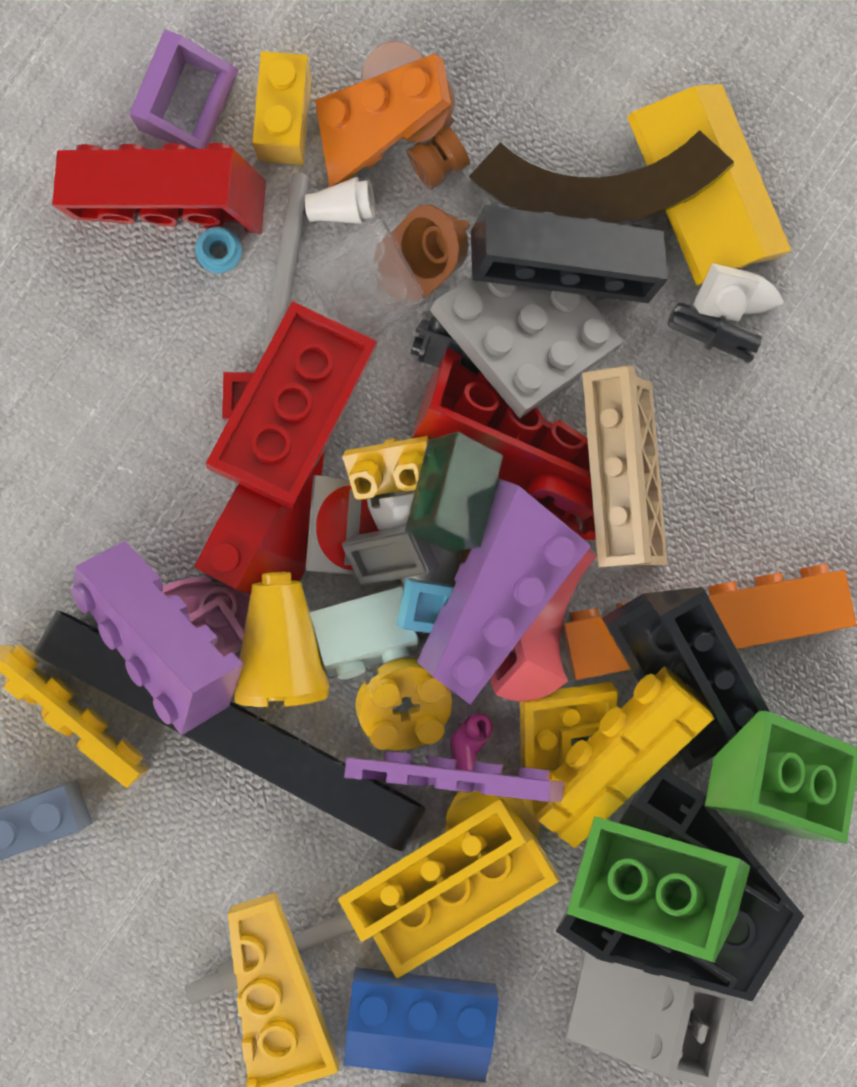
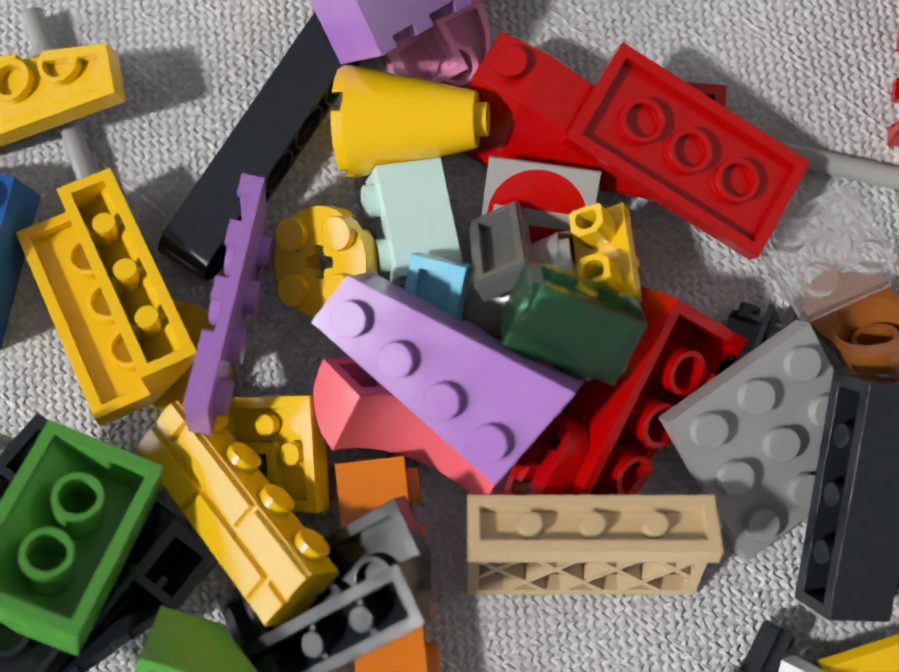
camera: 105 degrees right, 5 degrees down
(218, 236) = (880, 82): medium azure plate -> none
(470, 740) = (277, 338): dark pink arm -> none

